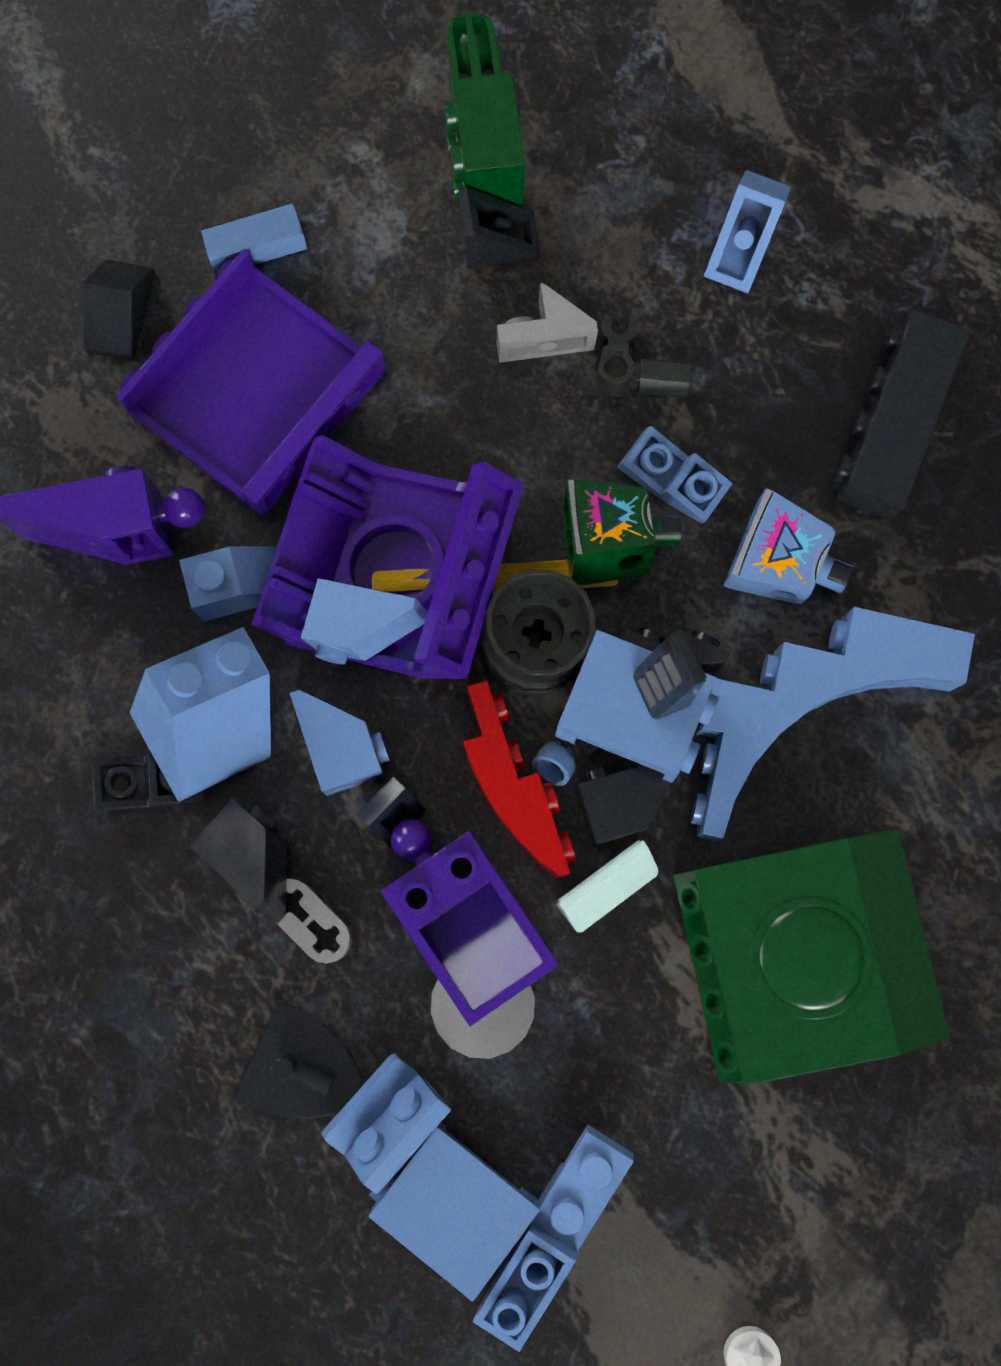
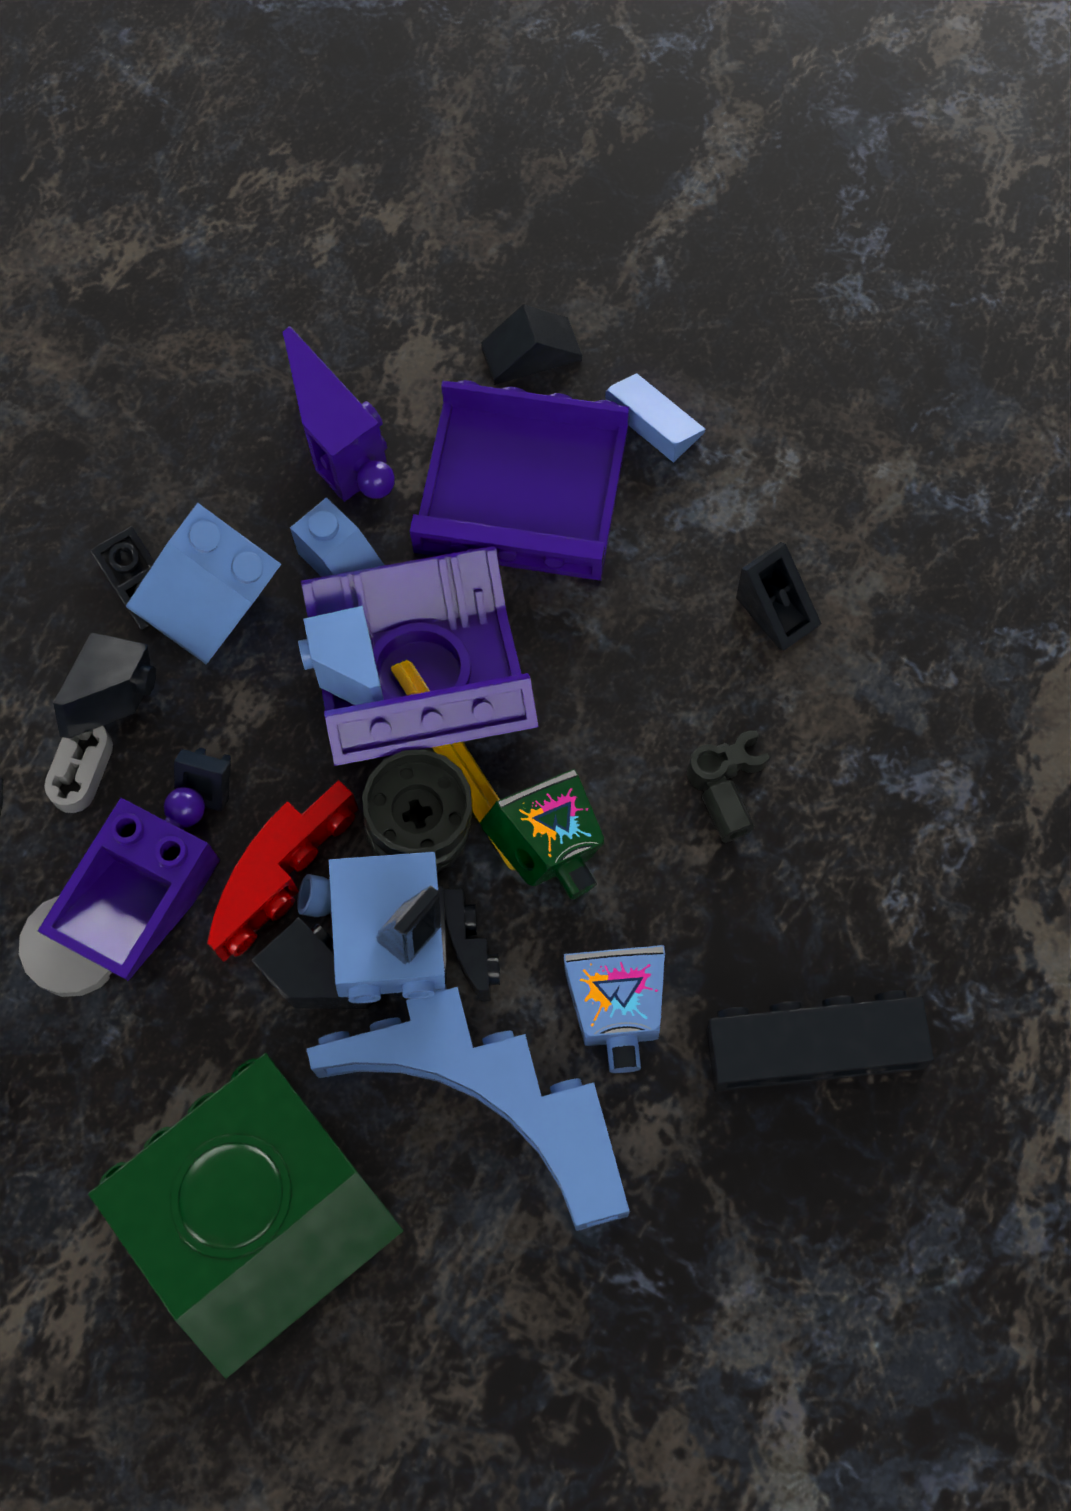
camera: 70 degrees right, 10 degrees down
(338, 744) = (239, 706): medium blue slope -> none
(482, 114) = (865, 527): dark green brick -> none
(558, 332) = (712, 695): light grey slope -> none
(608, 886) = (226, 997): light aqua slope -> none
(673, 476) = (641, 867): medium blue slope -> none
(747, 231) = (916, 811): medium blue slope -> none

